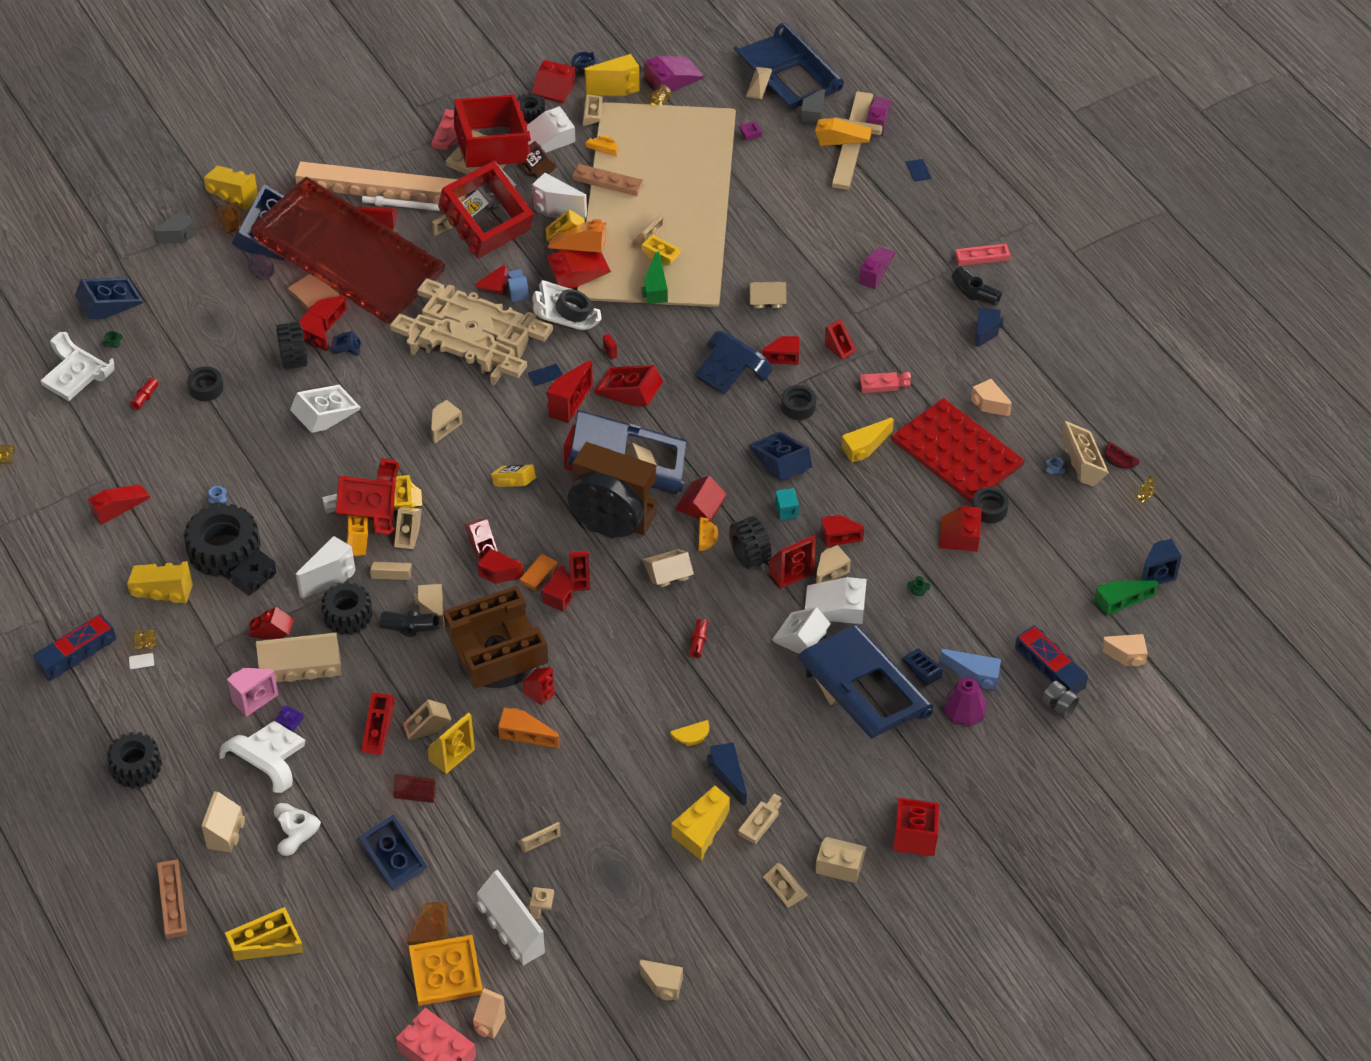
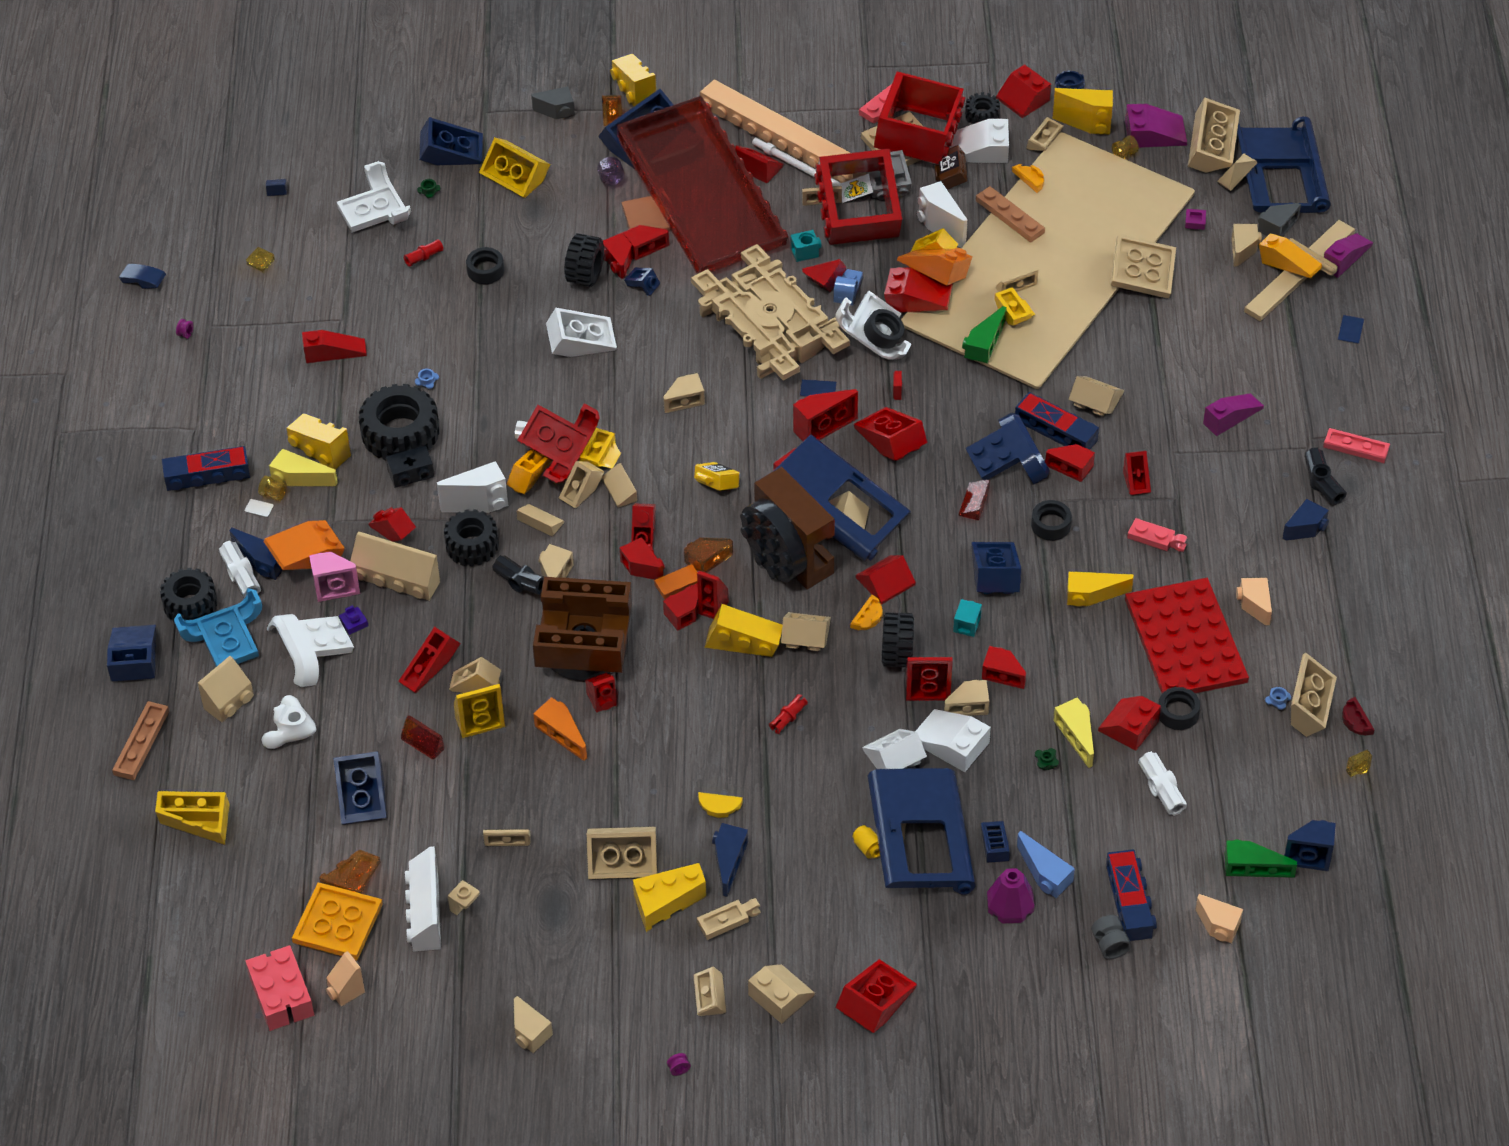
camera: 30 degrees right, 0 degrees up
(115, 828) = (132, 653): none -> dark blue slope
(162, 614) = (301, 471): none -> light yellow slope
(162, 718) = (238, 567): none -> white piece
(172, 698) = (257, 553): none -> dark blue slope
(176, 295) = (513, 167): none -> yellow slope
(186, 775) = (225, 630): none -> dark azure piece
(210, 672) = (294, 545): none -> orange slope
(440, 515) = (620, 486): none -> tan slope
(461, 266) = (805, 245): none -> teal brick
(548, 539) = (707, 553): none -> clear orange slope
(621, 590) = (743, 633): none -> yellow wedge
(642, 806) = (621, 852): none -> tan slope
(723, 63) = (1213, 136): none -> tan slope
(728, 410) = (975, 499): none -> slope
(737, 181) = (1143, 266): none -> tan plate
(753, 325) = (1056, 422): none -> dark blue brick
(798, 134) = (1244, 242): none -> tan slope
(802, 952) = (678, 1064): none -> magenta bush
(829, 710) = (866, 841): none -> yellow brick
(926, 552) = (1074, 723): none -> light yellow slope
(1017, 566) = (1162, 783): none -> white piece

